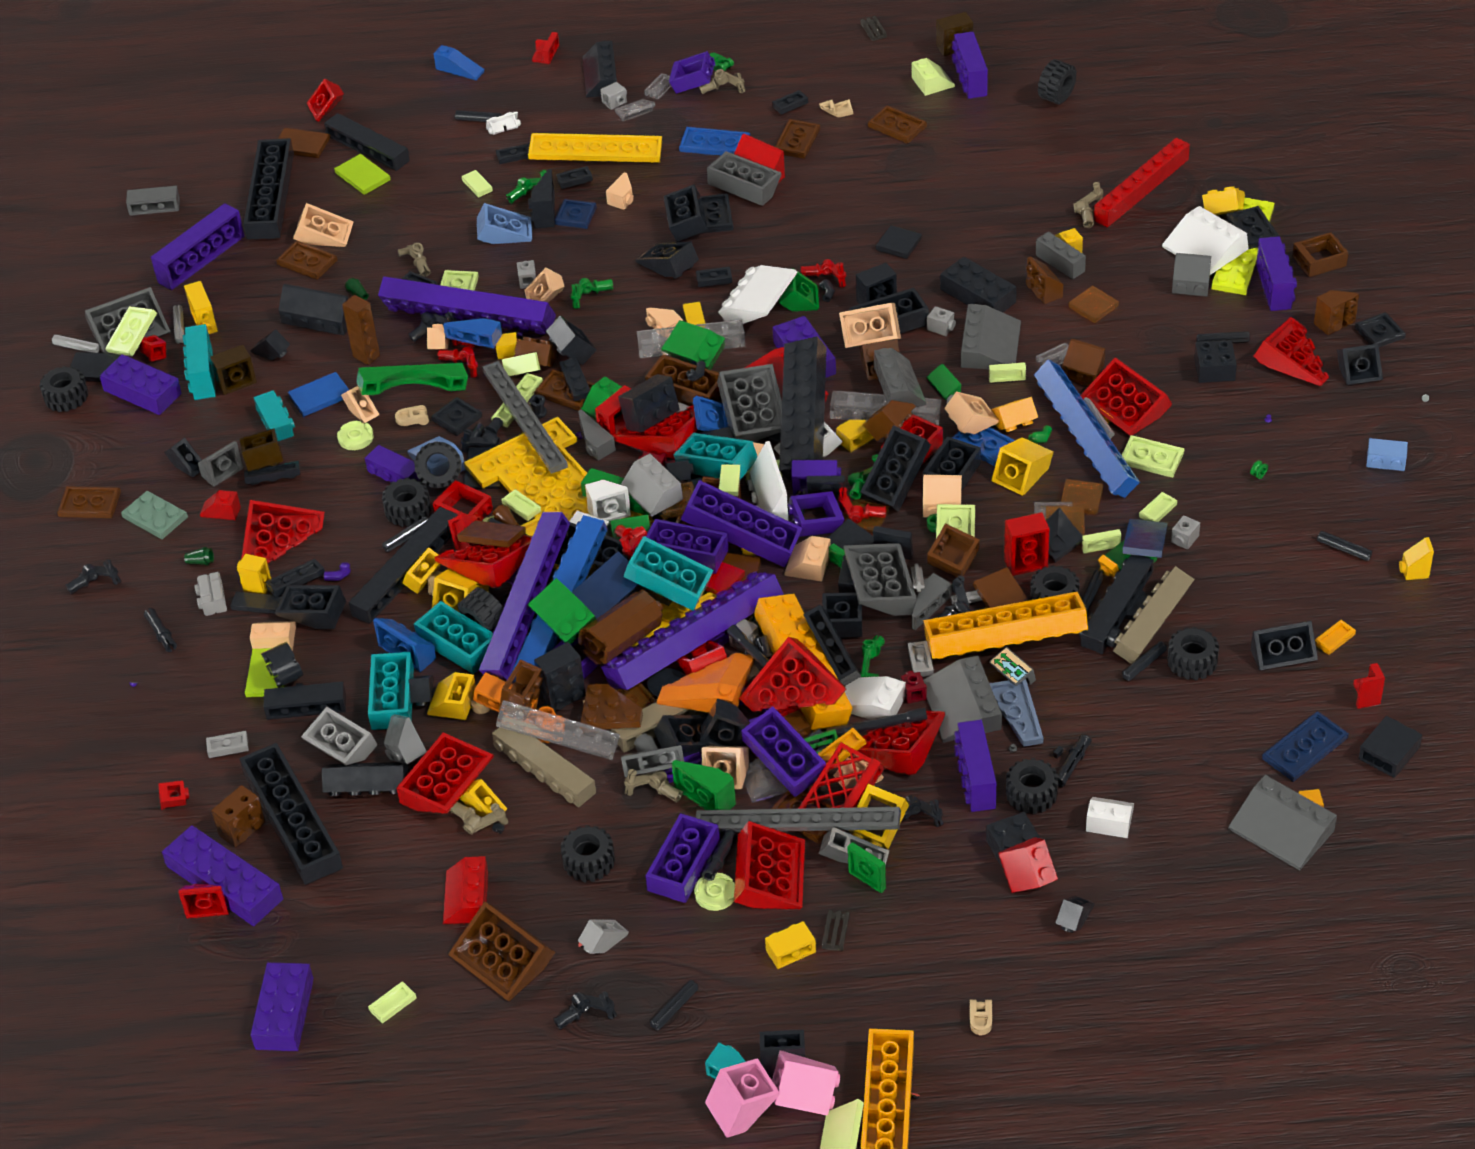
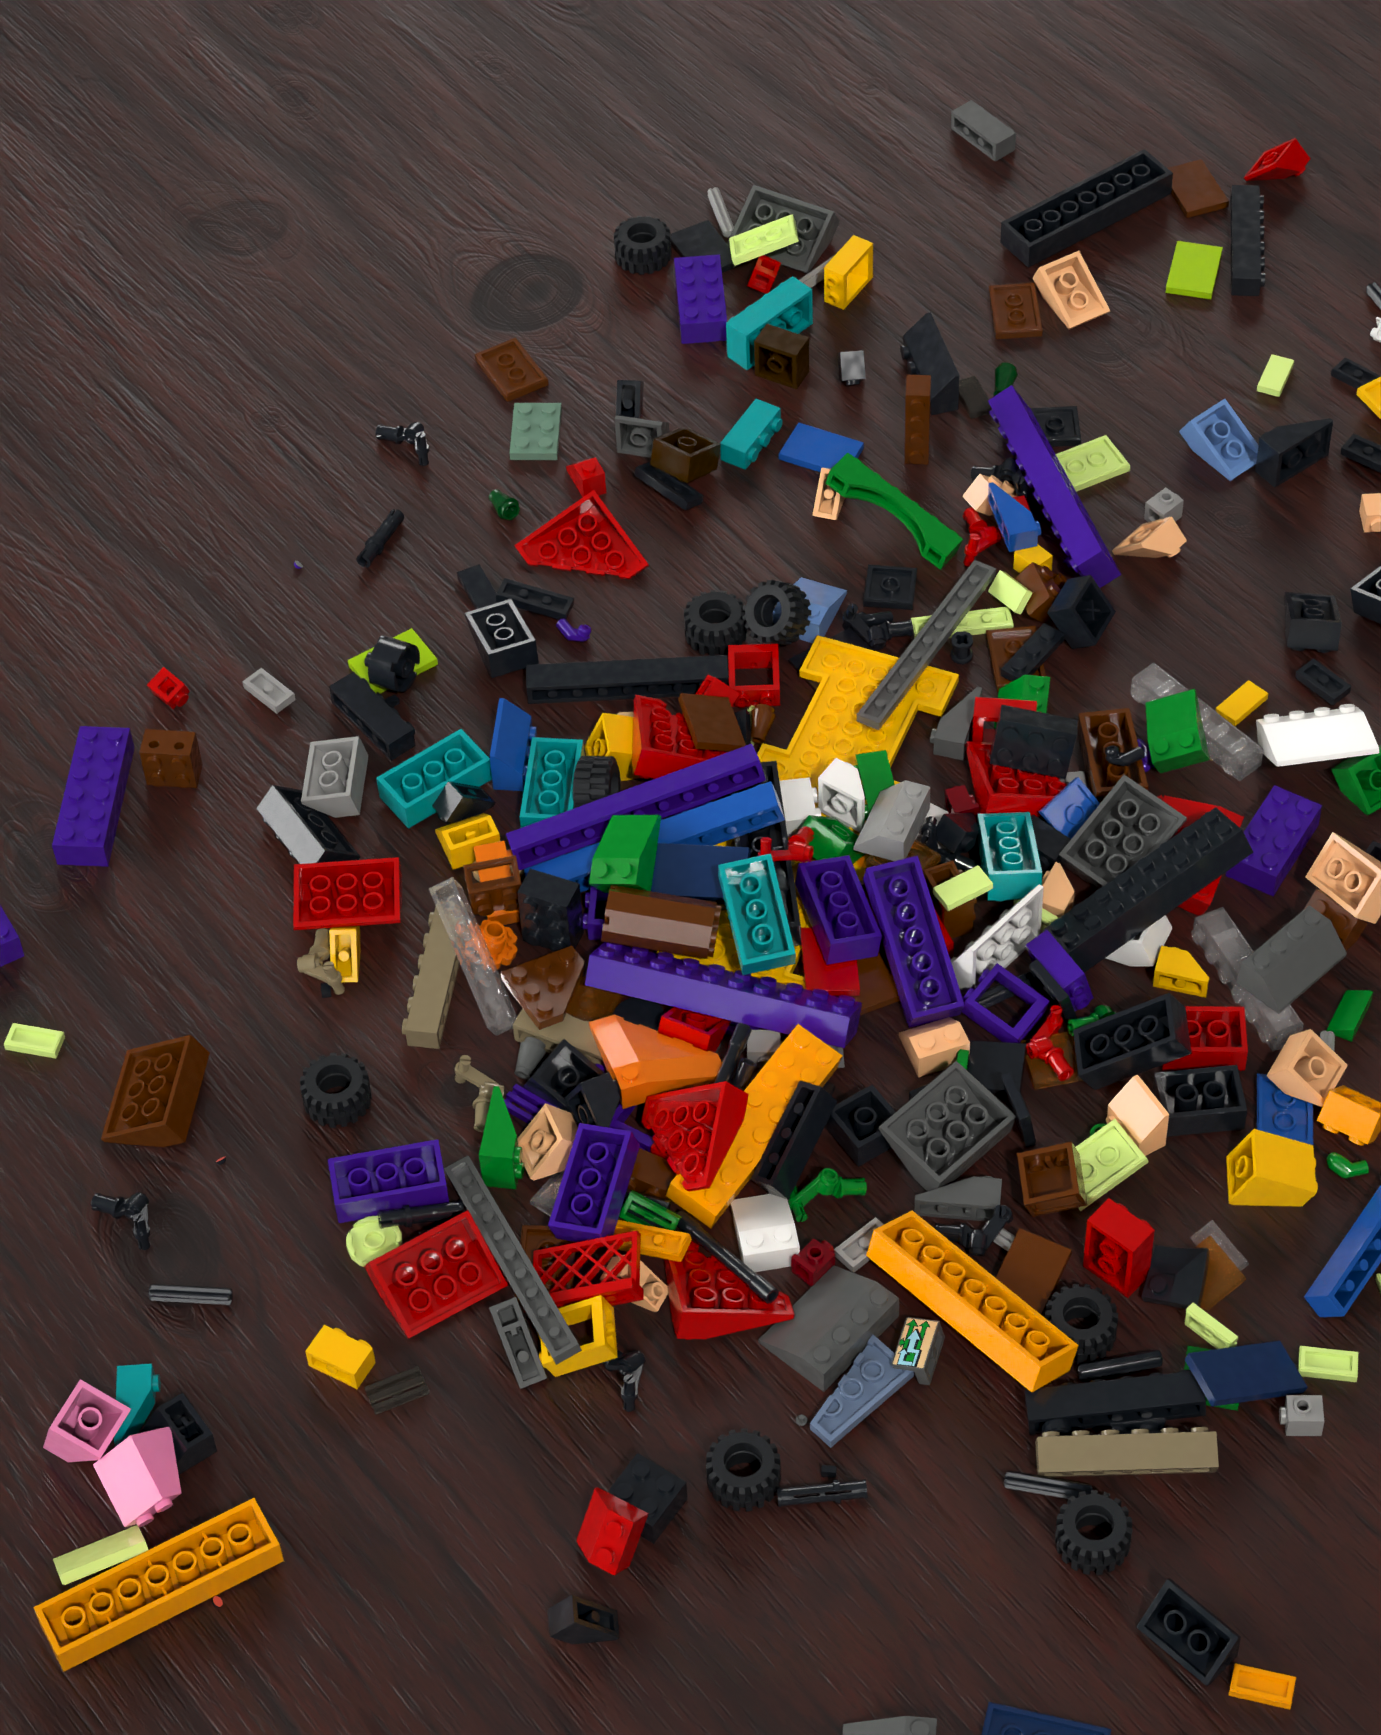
camera: 55 degrees right, 5 degrees up
(197, 246) = (938, 209): dark purple brick -> none
(203, 900) = (45, 793): red slope -> none
(211, 594) = (458, 546): light grey brick -> none
(253, 574) = (501, 560): yellow brick -> none
(272, 634) = (442, 631): light nougat slope -> none
(291, 813) = (208, 799): black brick -> none
(355, 435) = (786, 519): yellowish green tile -> none
(390, 465) = (759, 567): dark purple brick -> none
(402, 740) = (363, 834): dark grey slope -> none
(403, 536) = (660, 650): black axle -> none
(412, 416) = (847, 544): tan plate -> none
(416, 252) = (1101, 392): dark tan pin -> none
(421, 571) = (620, 696): yellow brick -> none
(465, 890) = (218, 1015): red slope -> none
(521, 505) = (792, 724): yellowish green tile -> none
(523, 186) = (1311, 414): green pin -> none
(575, 213) = (1311, 492): dark blue tile -> none
(586, 286) = (1194, 574): green pin -> none
(601, 935) = (237, 1171): light grey slope -> none
(651, 760) = (500, 1067): dark grey slope -> none
(662, 318) = (1202, 677): light nougat slope -> none
(866, 867) = (492, 1366): green tile -> none
(891, 414) = (1209, 984): reddish brown slope -> none
(917, 577) = (983, 1167): light grey axle -> none
(975, 765) = (726, 1392): dark purple brick -> none
(981, 1021) = (356, 1610): tan plate -> none
(1083, 494) = (1278, 1268): clear orange tile -> none
(1108, 566) = (1172, 1359): light orange plate -> none
(1109, 817) = (764, 1579): white slope -> none

